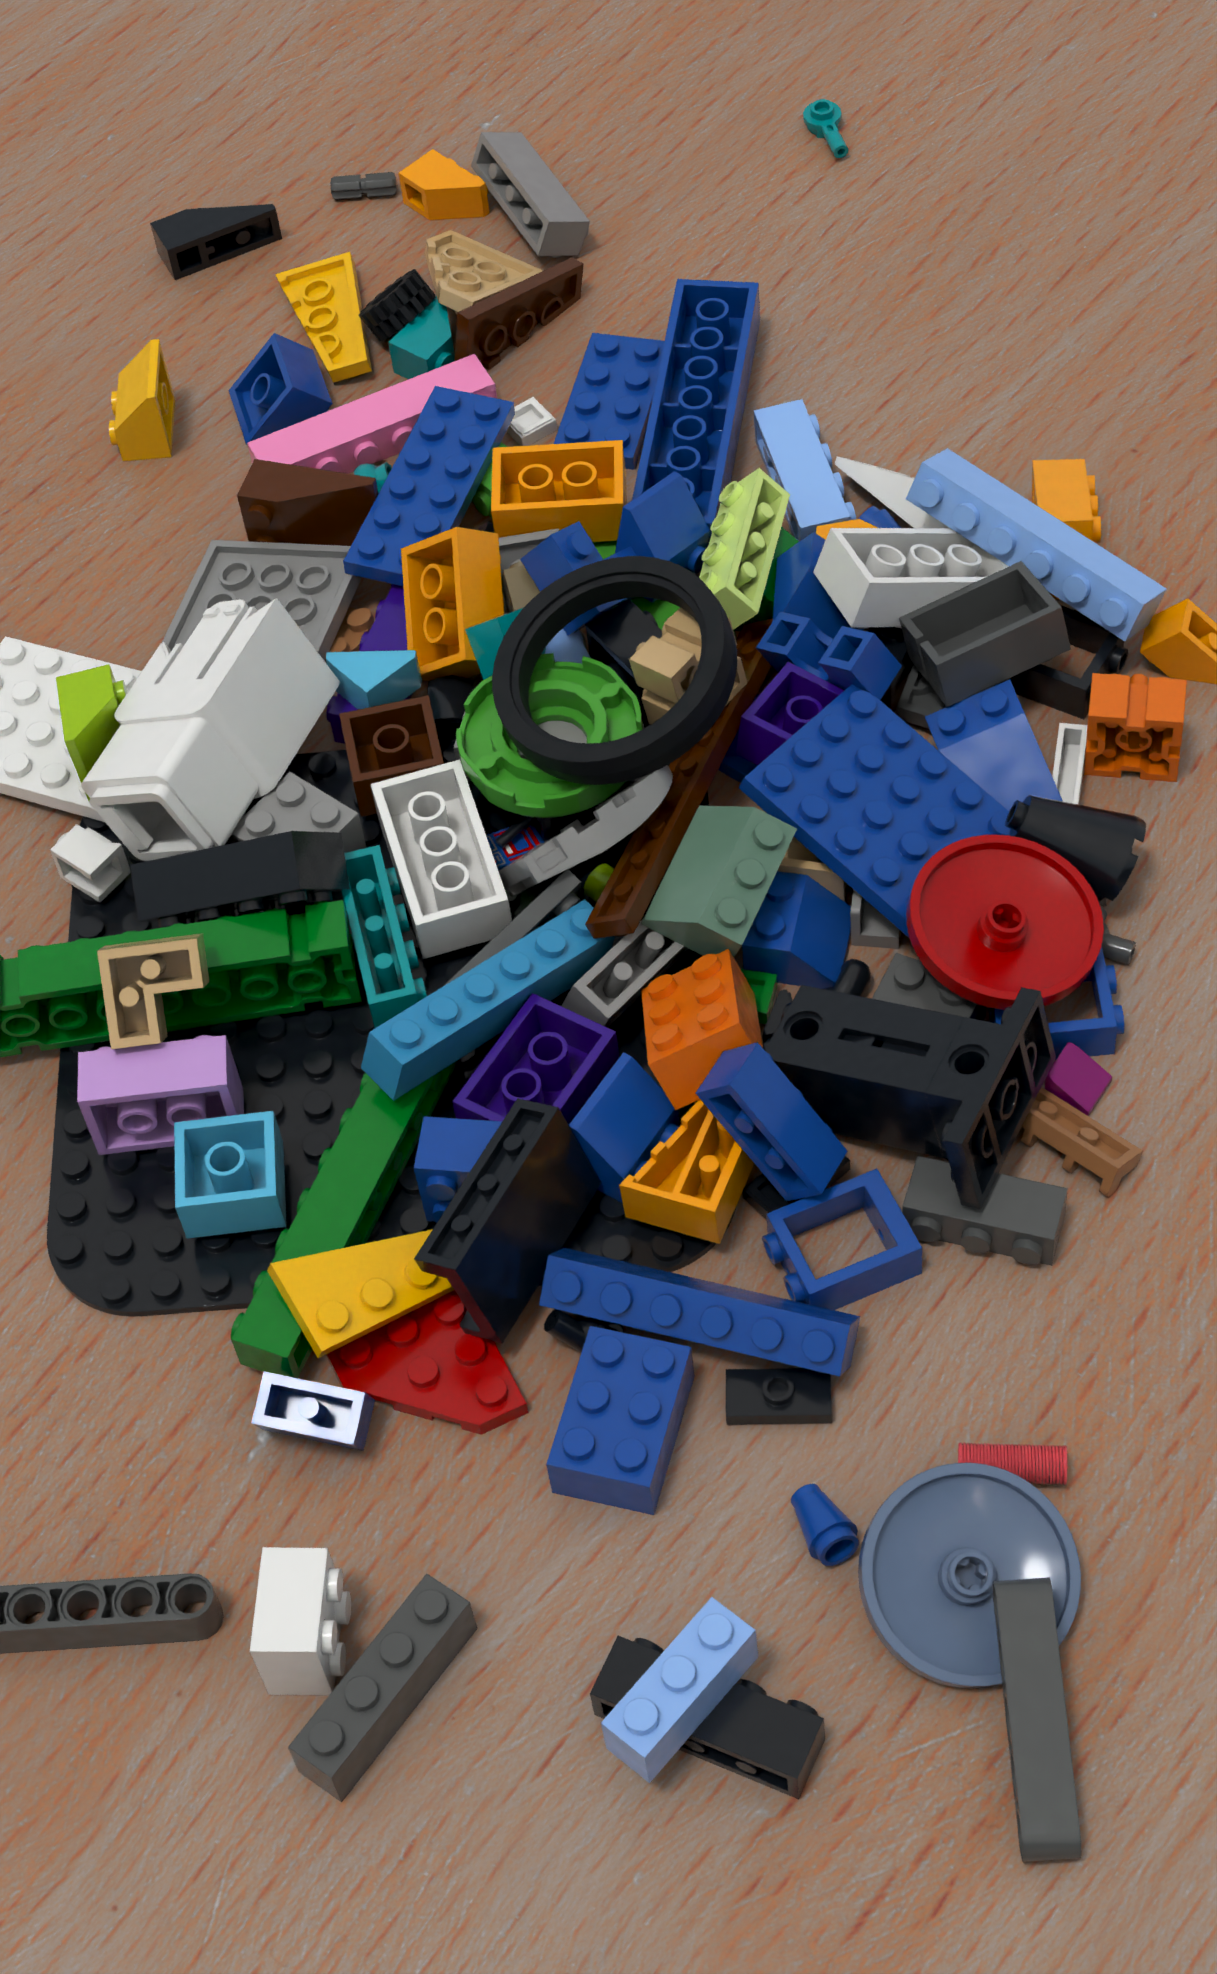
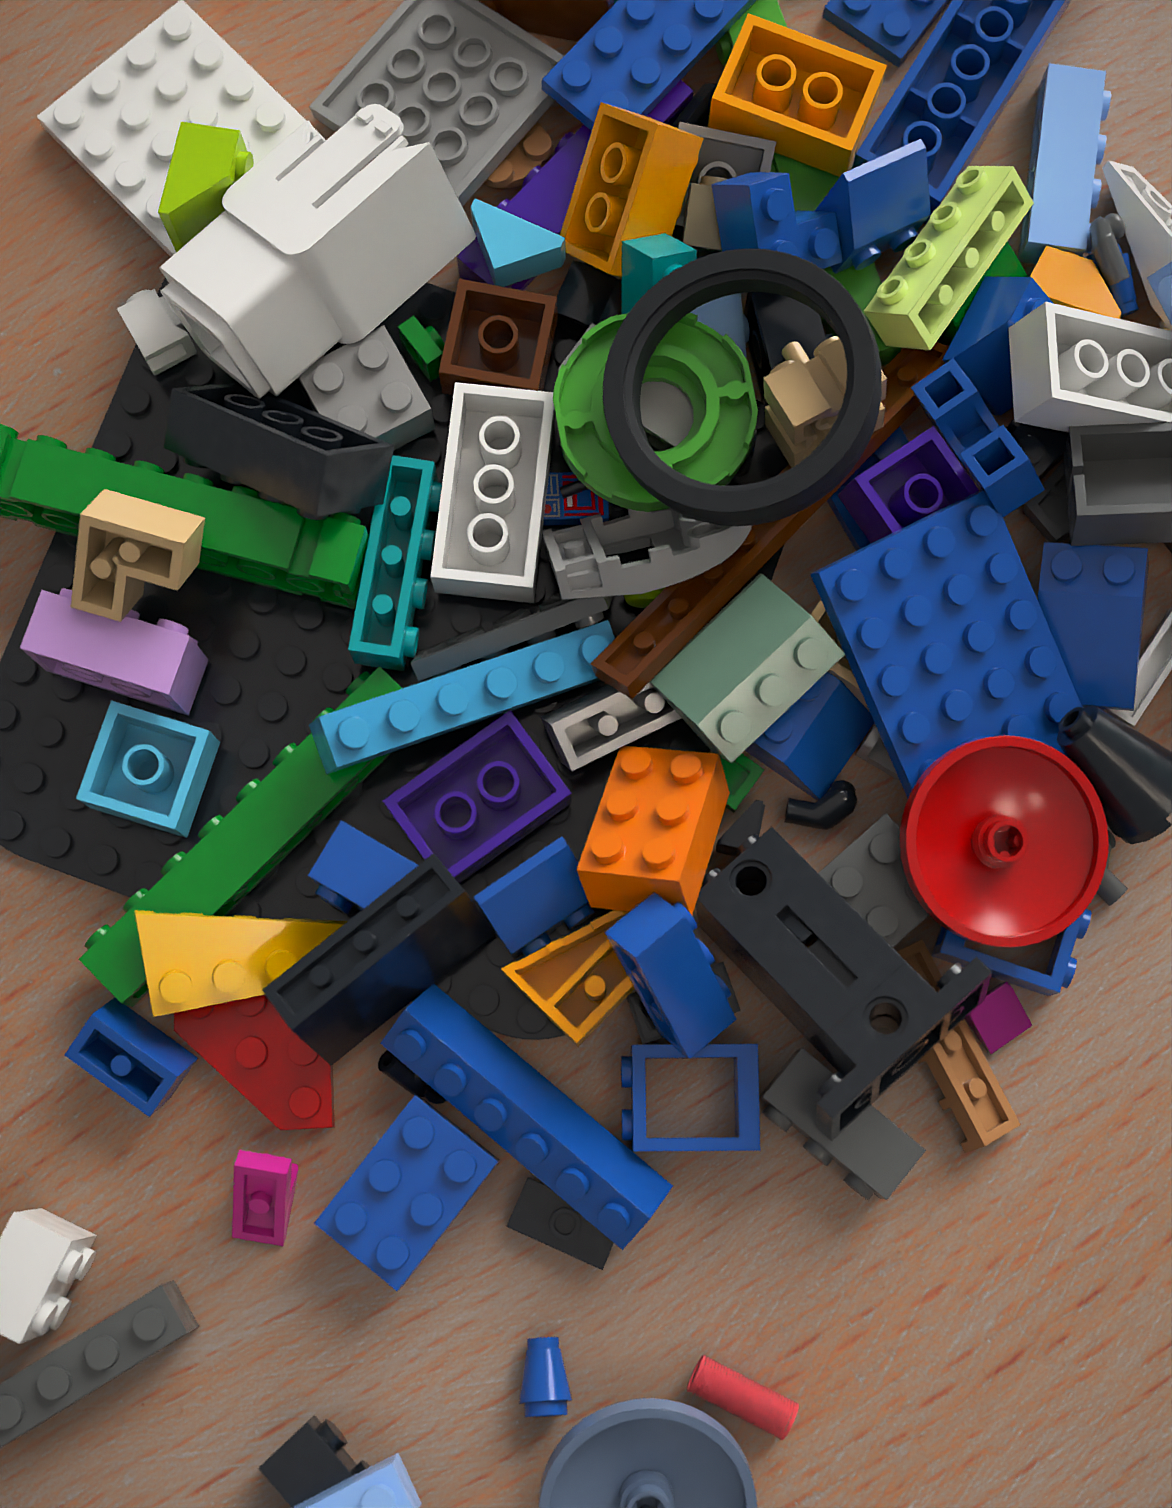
camera: 15 degrees right, 25 degrees up
(331, 781) = (423, 346): none -> green plate
(487, 1478) = (262, 1197): none -> dark pink slope
(861, 501) = (1106, 250): none -> dark grey arm

